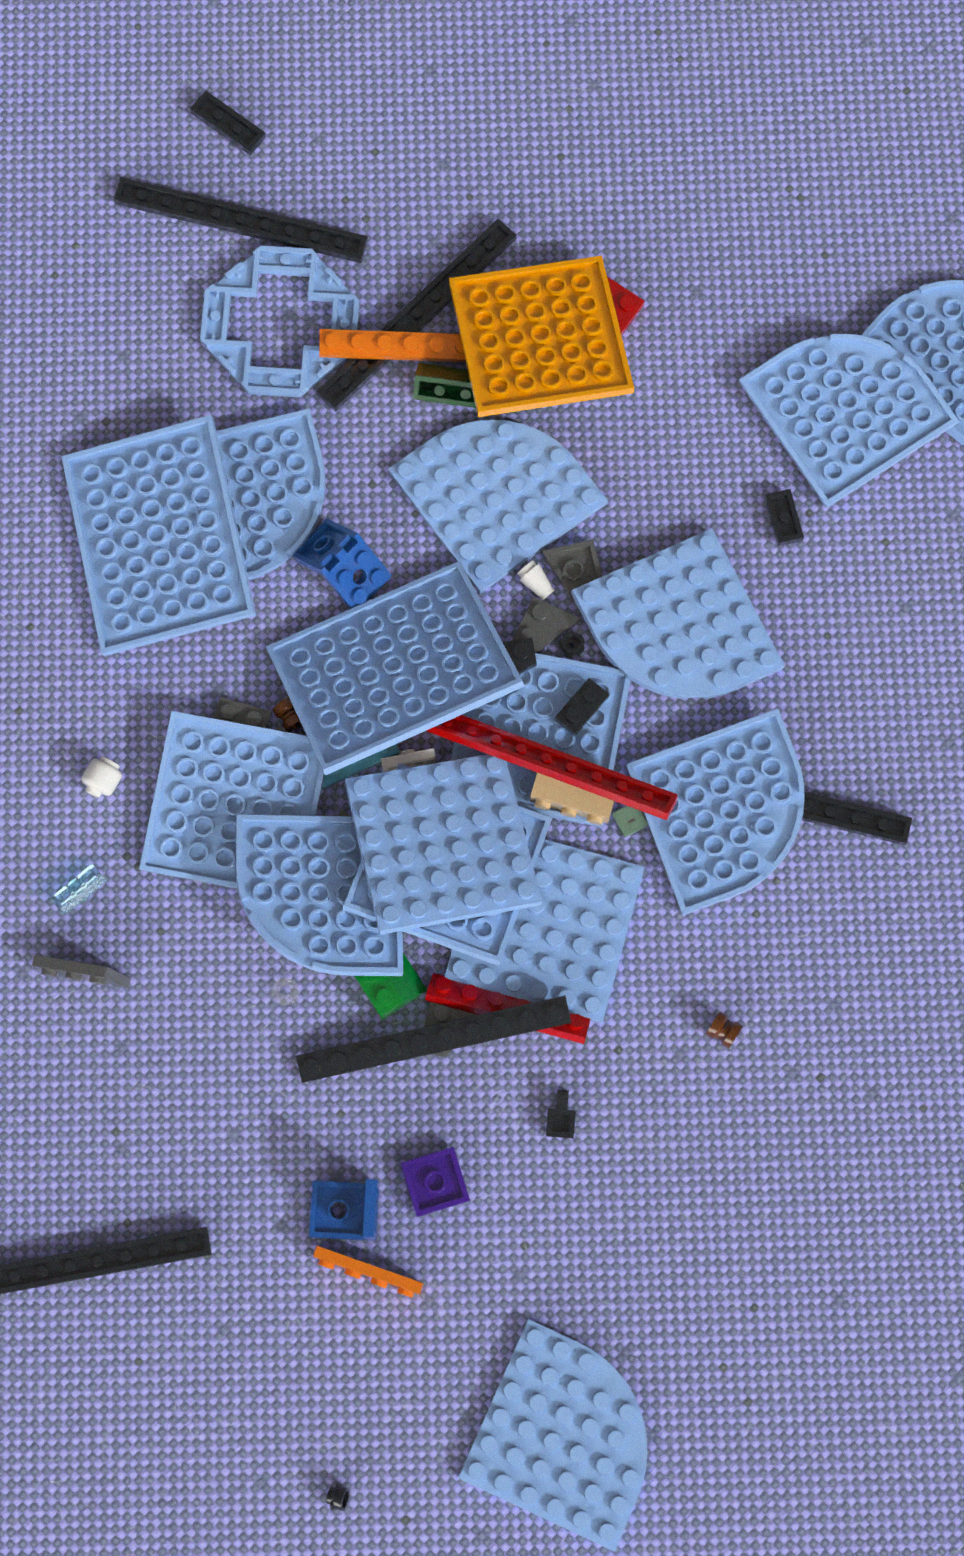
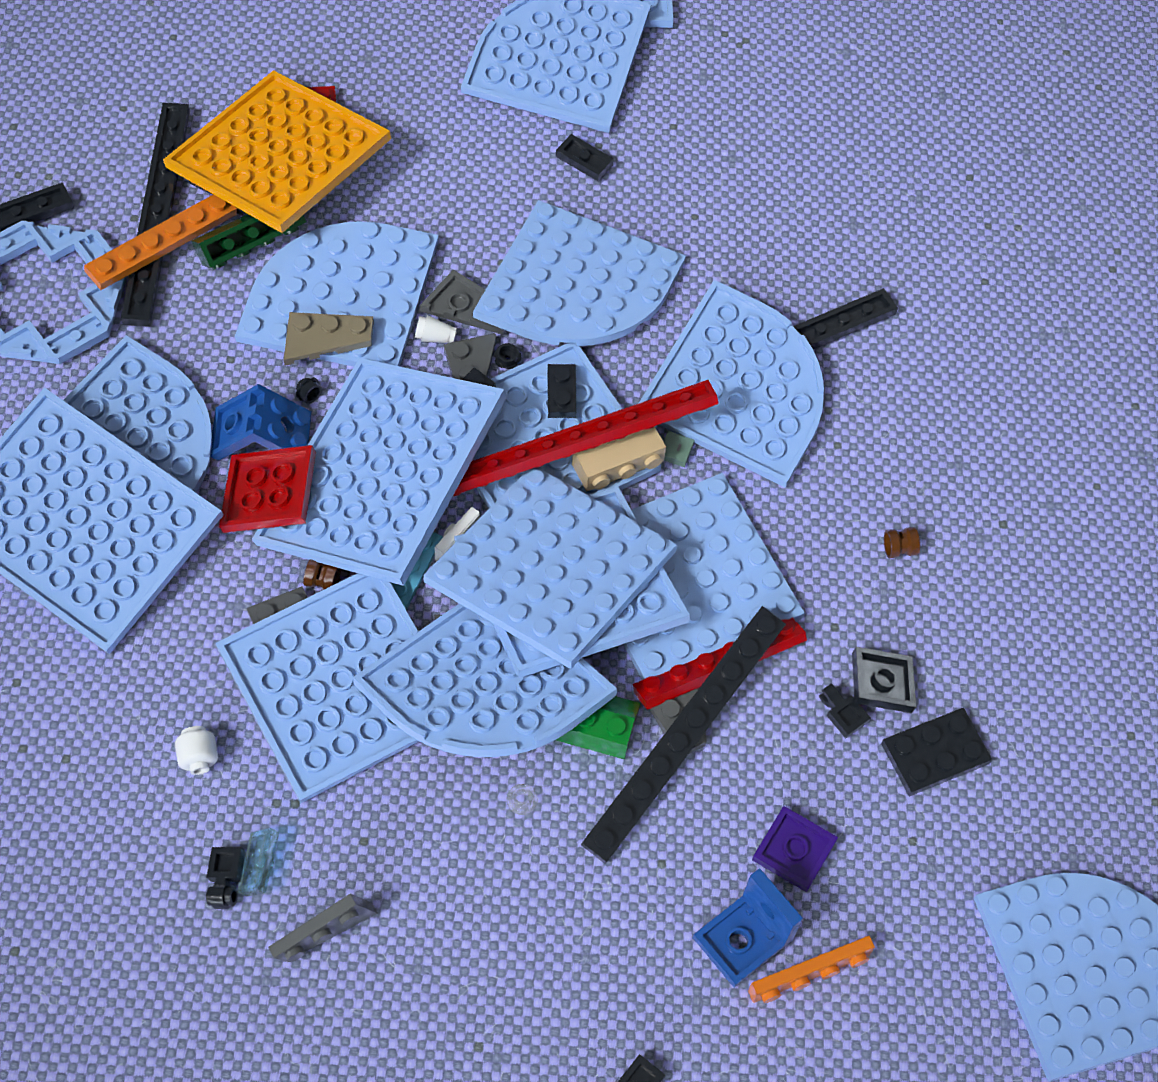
camera: 45 degrees left, 15 degrees down
(54, 875) = (224, 867): none -> black plate
(305, 617) = (268, 489): none -> red plate
(403, 556) = (308, 390): none -> black plate
(447, 520) = (324, 333): none -> dark tan wing
(600, 1199) = (936, 751): none -> black plate
(609, 1119) = (883, 680): none -> plate

